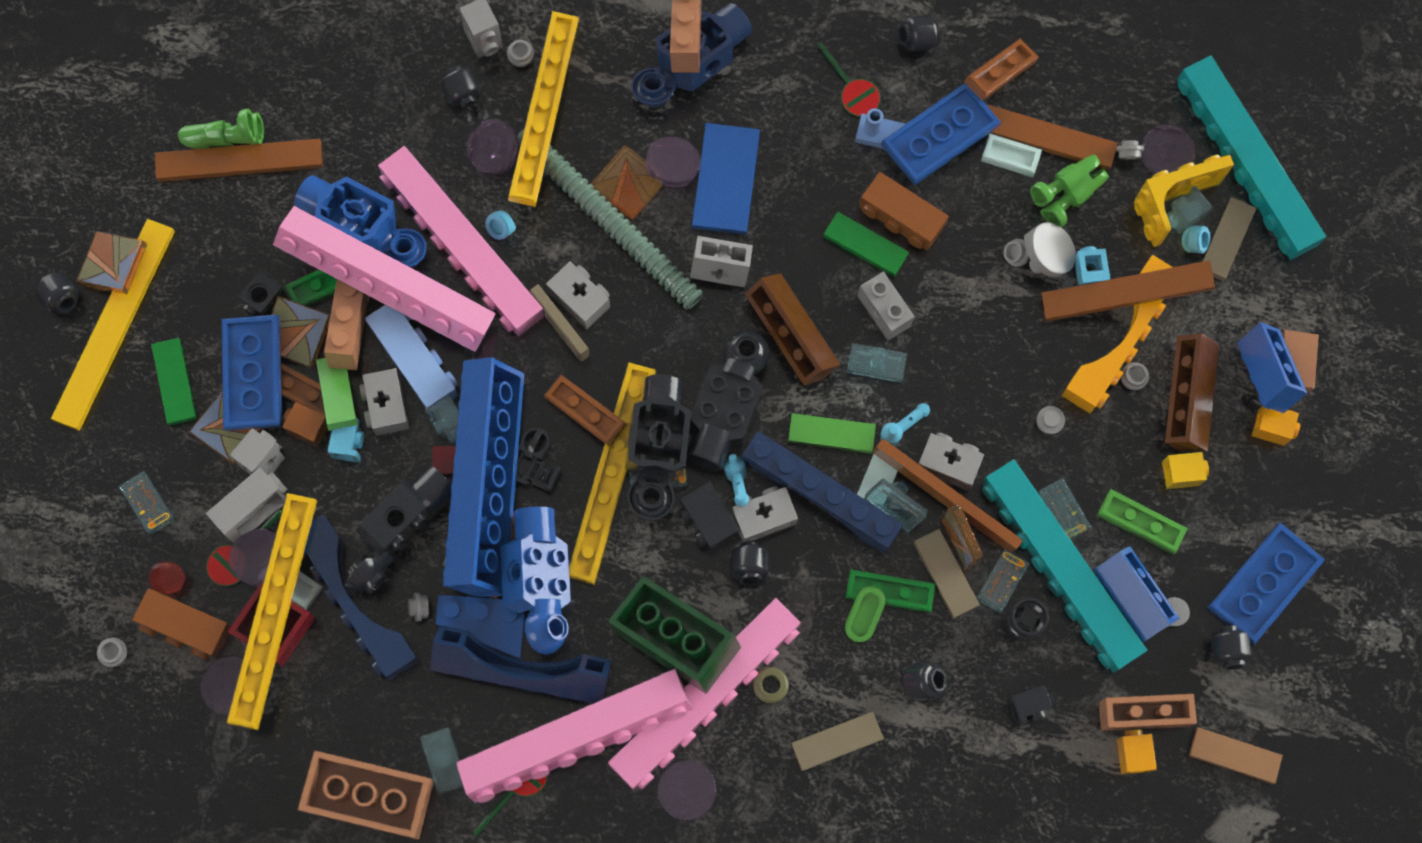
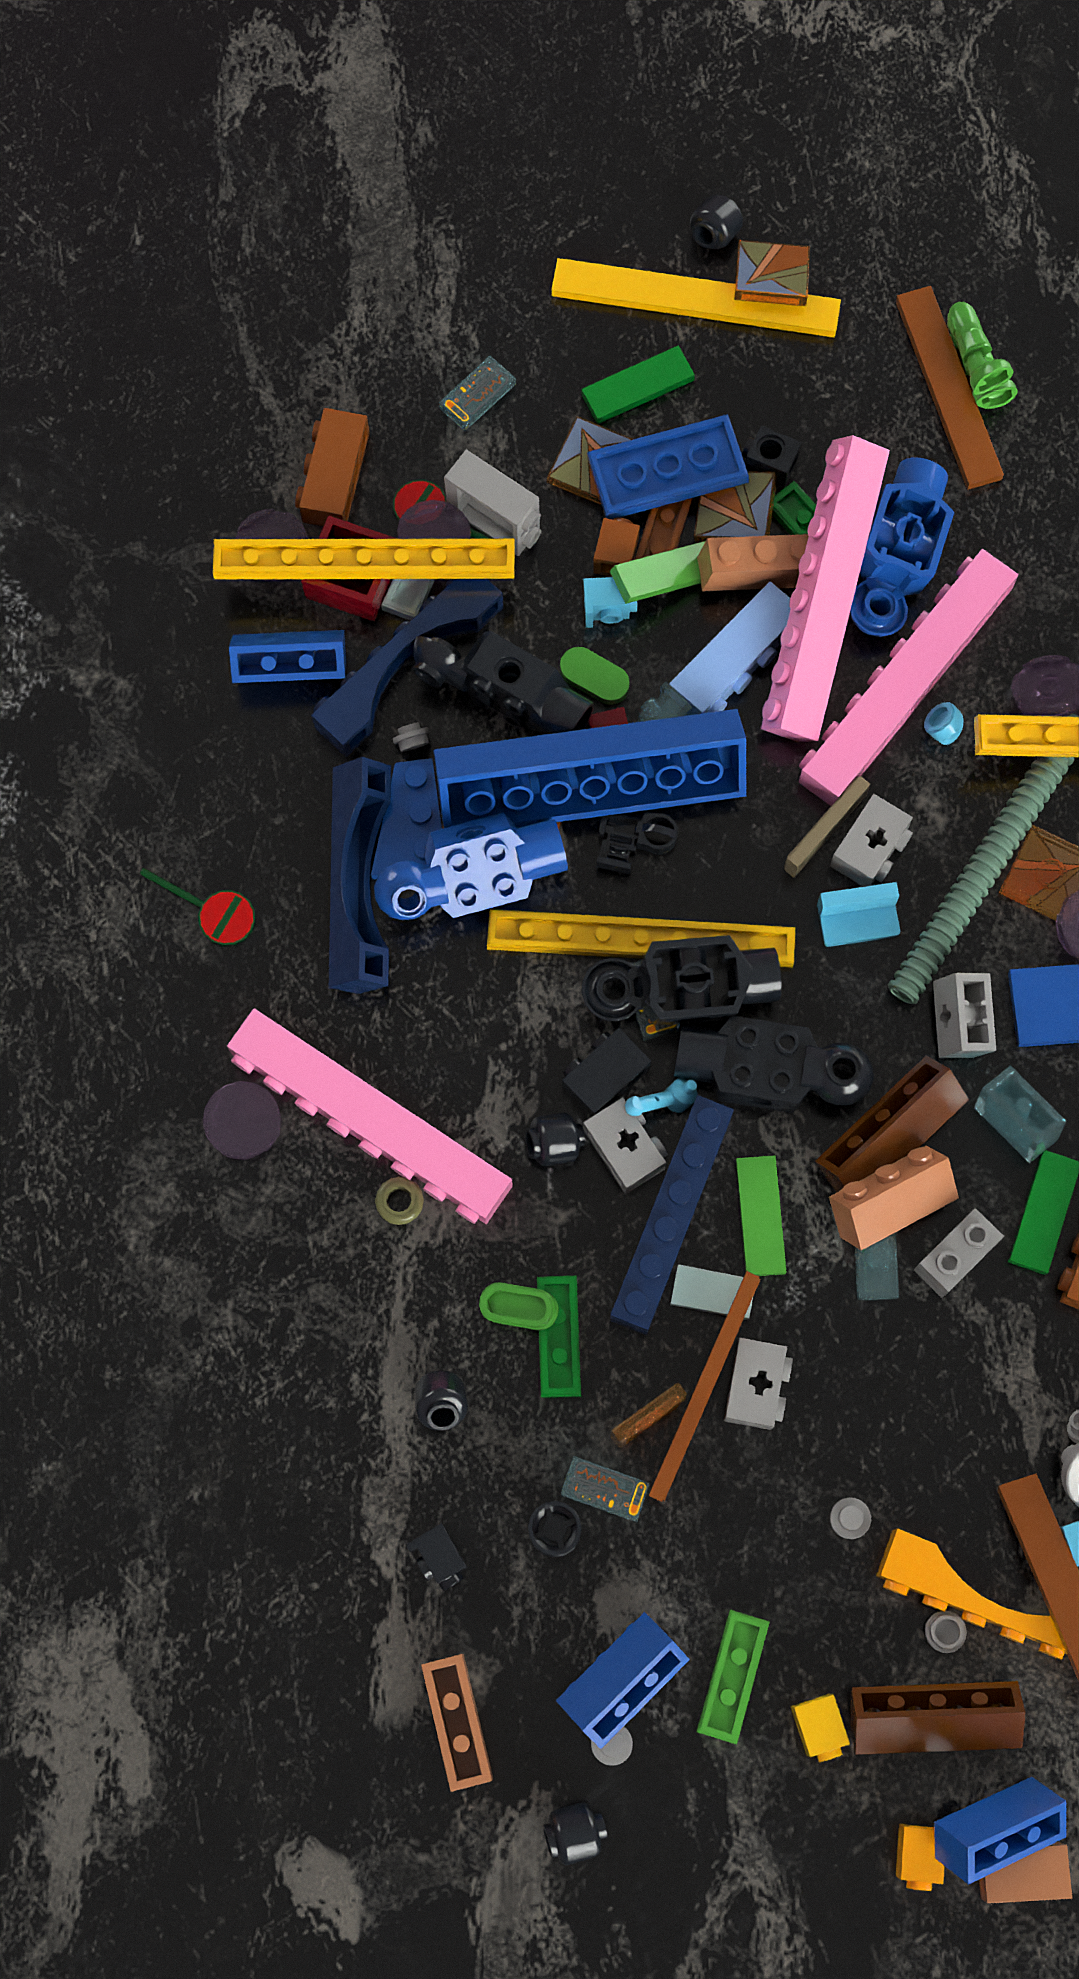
camera: 85 degrees right, 0 degrees up
(112, 652) = (285, 401): light grey plate -> none
(166, 577) = (387, 435): clear red piece -> none
(258, 452) = (561, 498): light grey brick -> none
(332, 686) = (288, 656): none -> blue brick
(366, 795) = (162, 728): nougat brick -> none
(384, 385) = (656, 649): light grey brick -> none
(401, 463) = (594, 675): none -> bright green tile
(442, 759) = (225, 813): clear light blue tile -> none
(574, 736) = (280, 961): bright pink brick -> none
(585, 410) = (715, 885): dark orange tile -> none
(629, 317) = (859, 914): none -> medium azure panel
(674, 634) = (432, 1055): dark green brick -> none
(799, 241) = (1020, 1114): none -> clear light blue brick
(837, 741) = (341, 1303): dark tan tile -> none
(841, 338) = (893, 1197): none -> nougat brick
(893, 432) = (779, 1298): medium azure piece -> none
(896, 503) = (677, 1318): clear light blue tile -> none
(946, 573) = (598, 1408): dark tan tile -> none
(1063, 566) = (642, 1570): teal brick -> none
(1065, 508) = (725, 1560): clear light blue tile -> none
(1136, 752) = (400, 1716): light orange brick -> none
(1235, 755) = (425, 1864): medium nougat tile -> none
(1266, 583) = (683, 1876): blue tile -> none

